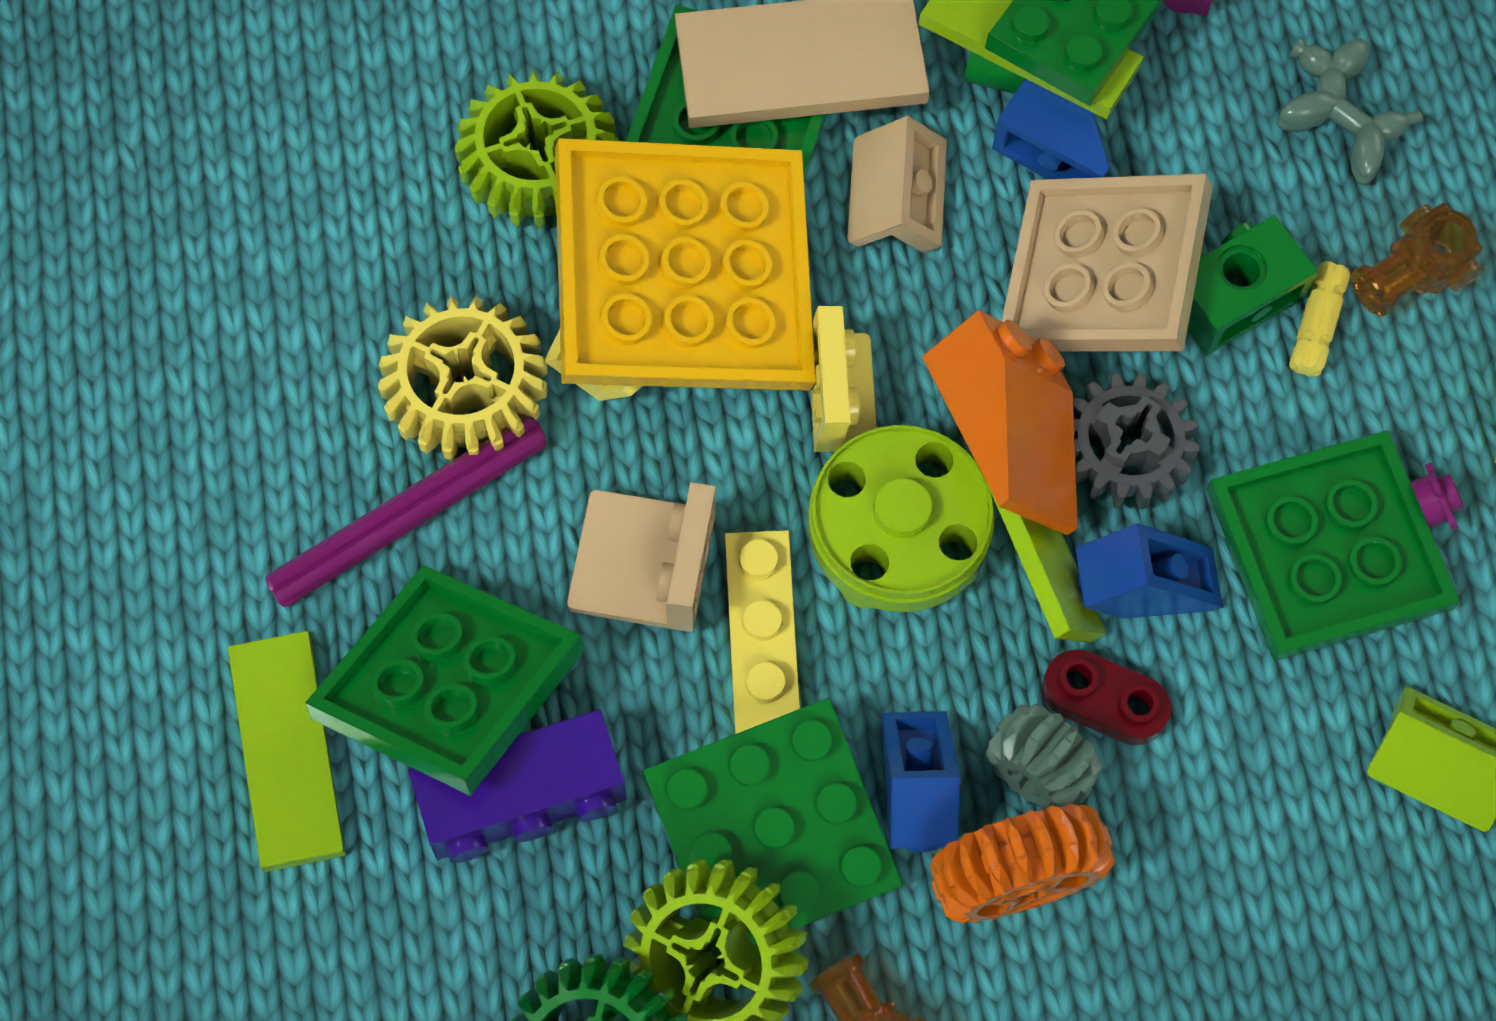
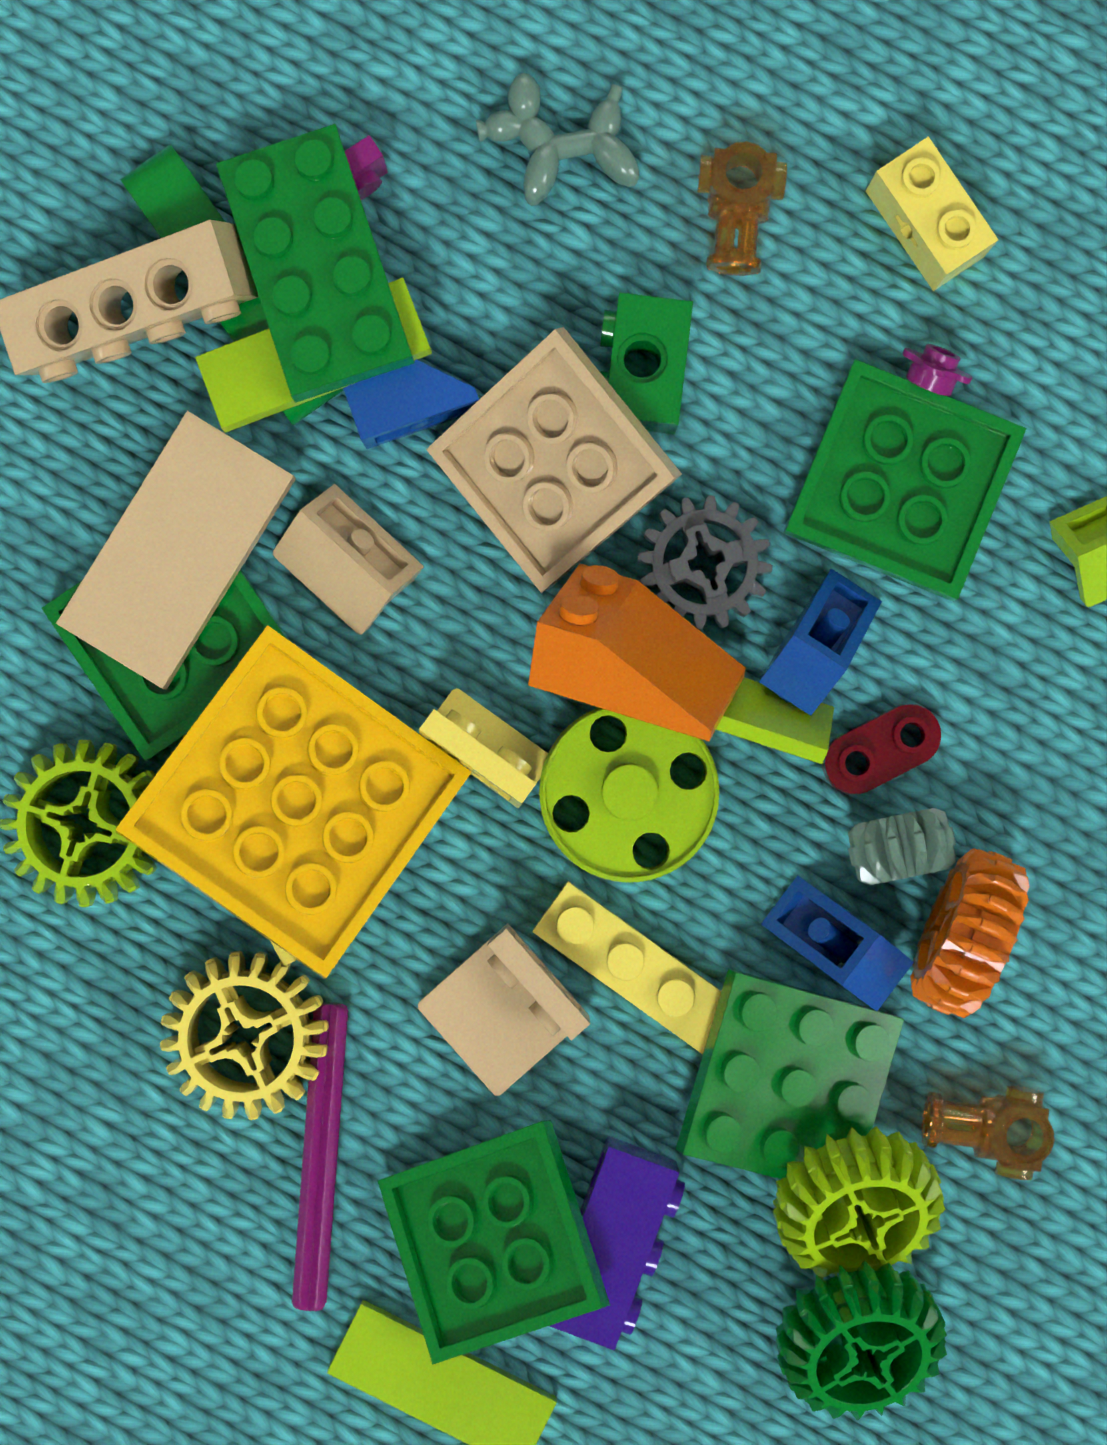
camera: 50 degrees left, 20 degrees up
(1319, 319) = (719, 323): light yellow axle -> none

